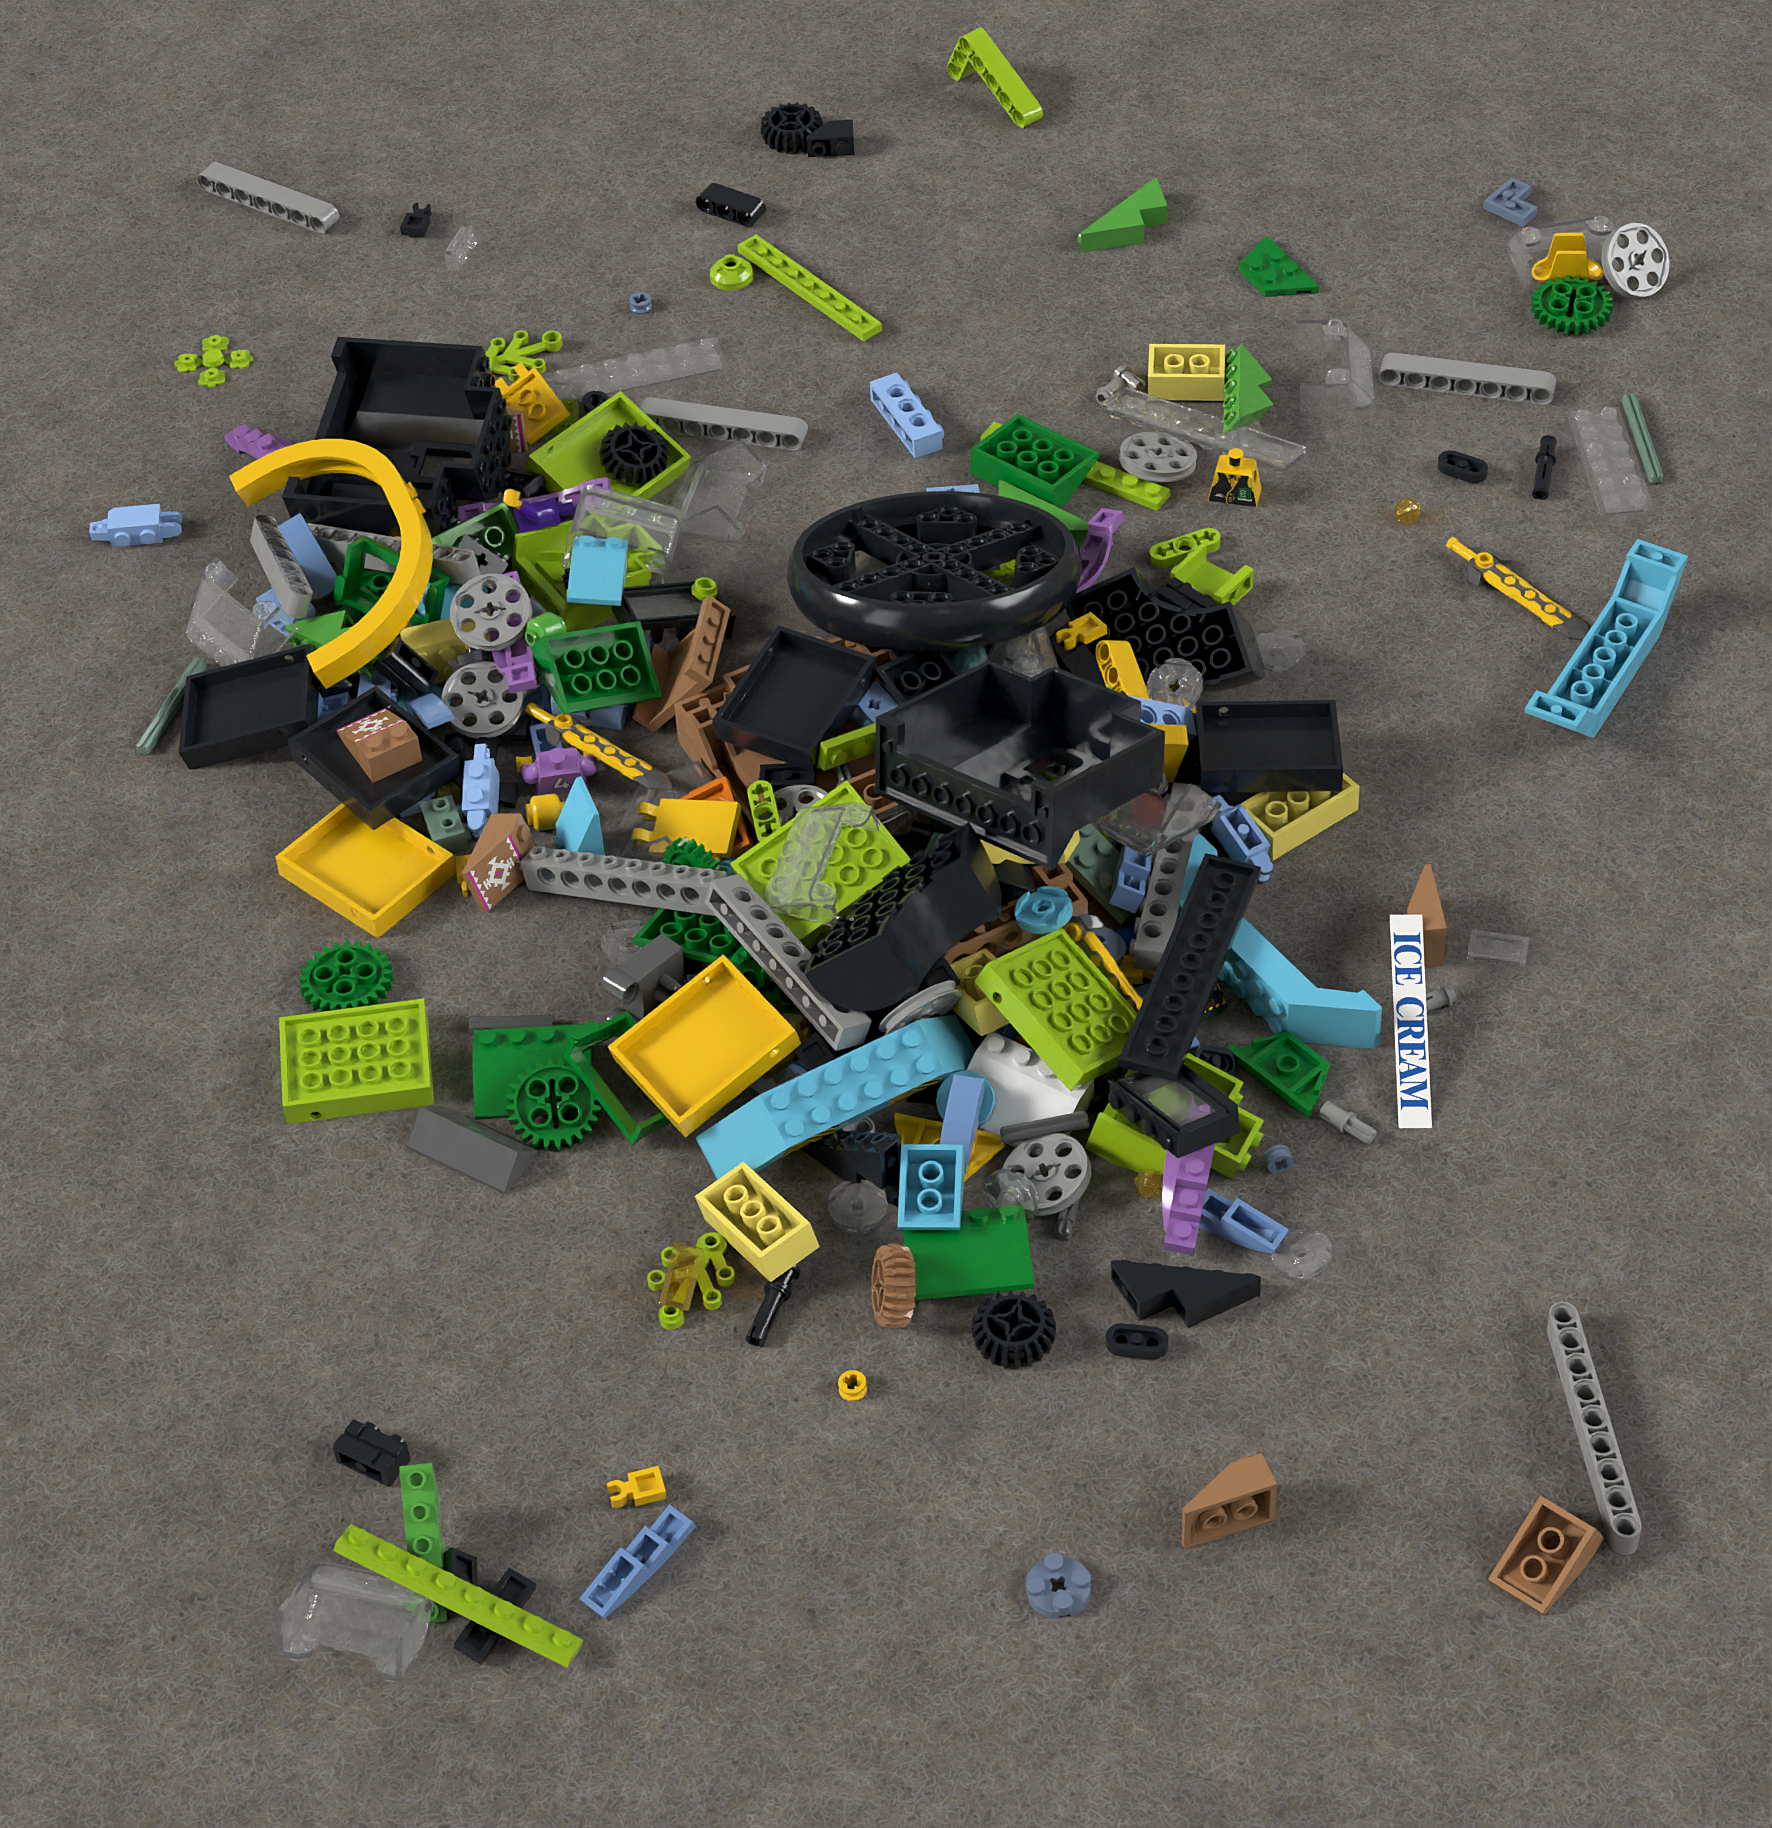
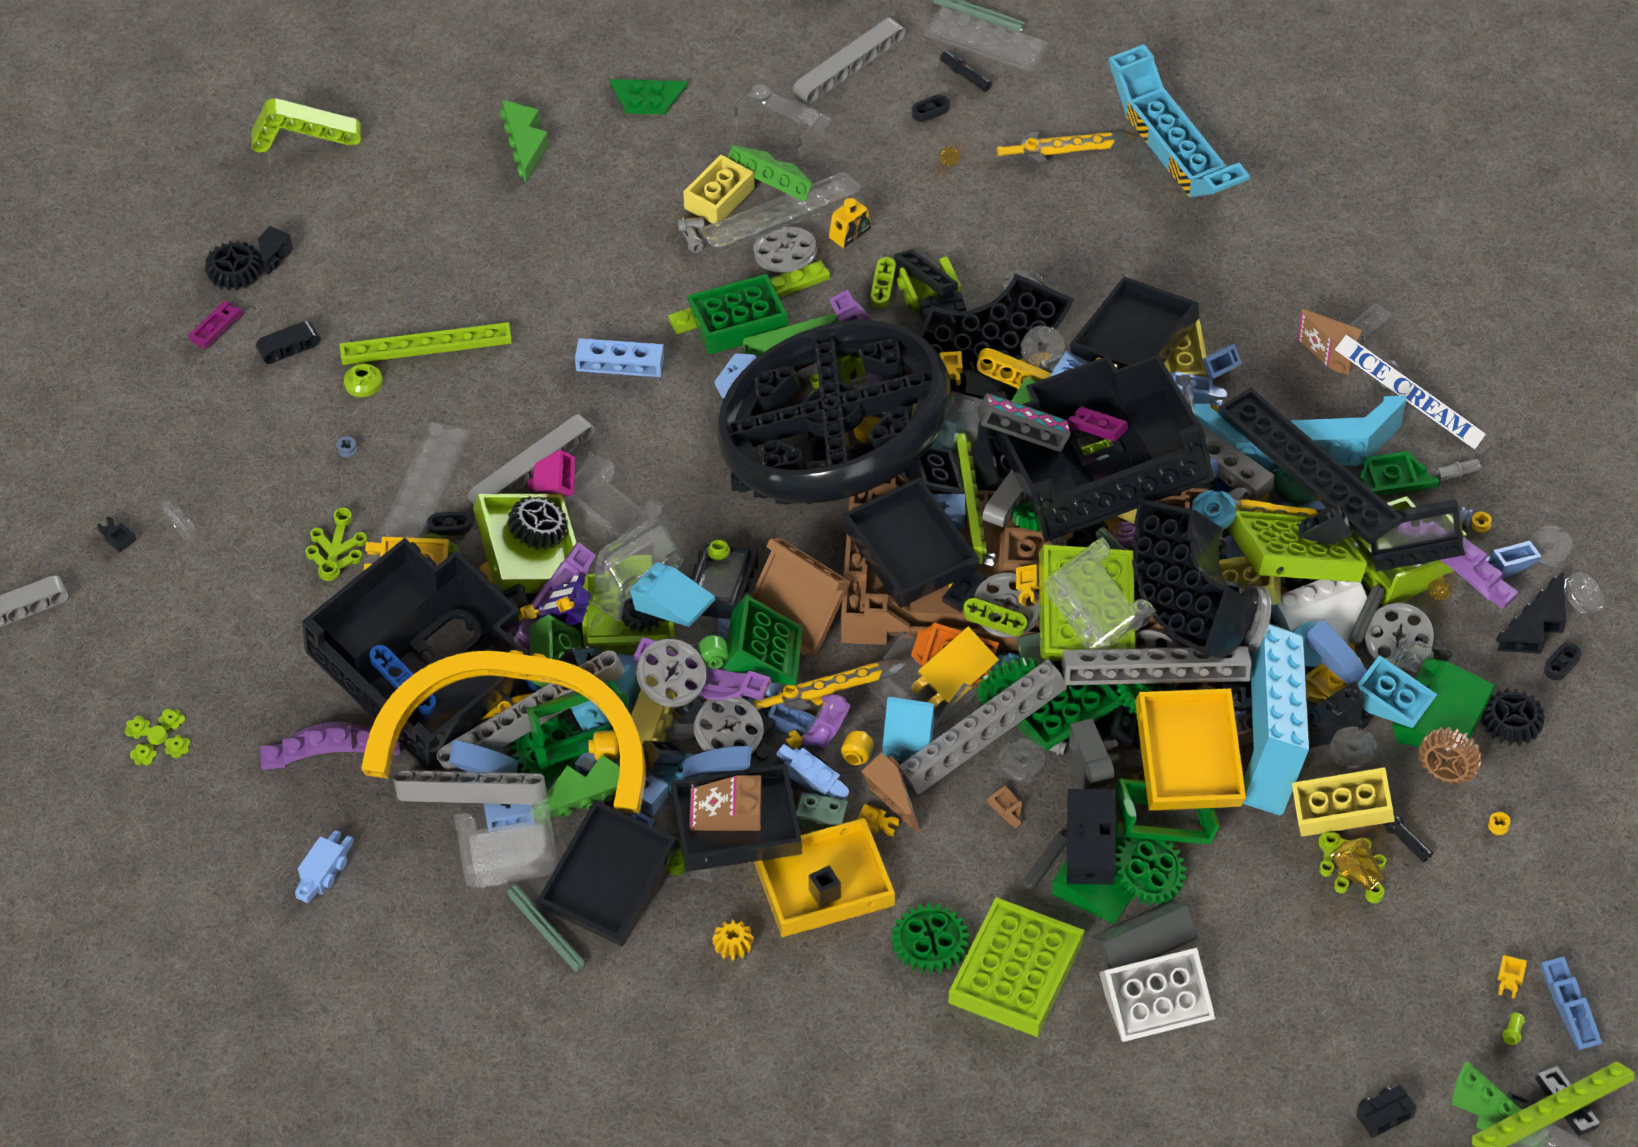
camera: 60 degrees left, 5 degrees up
(242, 836) = (732, 939): none -> yellow gear
(341, 863) = (824, 886): none -> black brick
(359, 434) = (396, 682): none -> blue beam
(397, 1189) = (1157, 994): none -> white slope
(532, 1023) = (1091, 836): none -> black brick
(564, 962) = (1006, 806): none -> medium nougat slope
(565, 1523) = (1511, 1034): none -> lime pin
(707, 439) = (554, 475): none -> dark pink torso
(713, 154) = (215, 324): none -> magenta plate
(992, 683) = (1023, 422): none -> dark grey brick
(1054, 748) = (1097, 424): none -> magenta plate
(1103, 1014) = (1326, 527): none -> black slope
(1218, 565) = (926, 272): none -> black plate
(1240, 1324) = (1584, 593): none -> clear plate
(1285, 1185) = (1481, 528): none -> yellow bush
(1298, 839) = (1221, 361): none -> medium blue slope

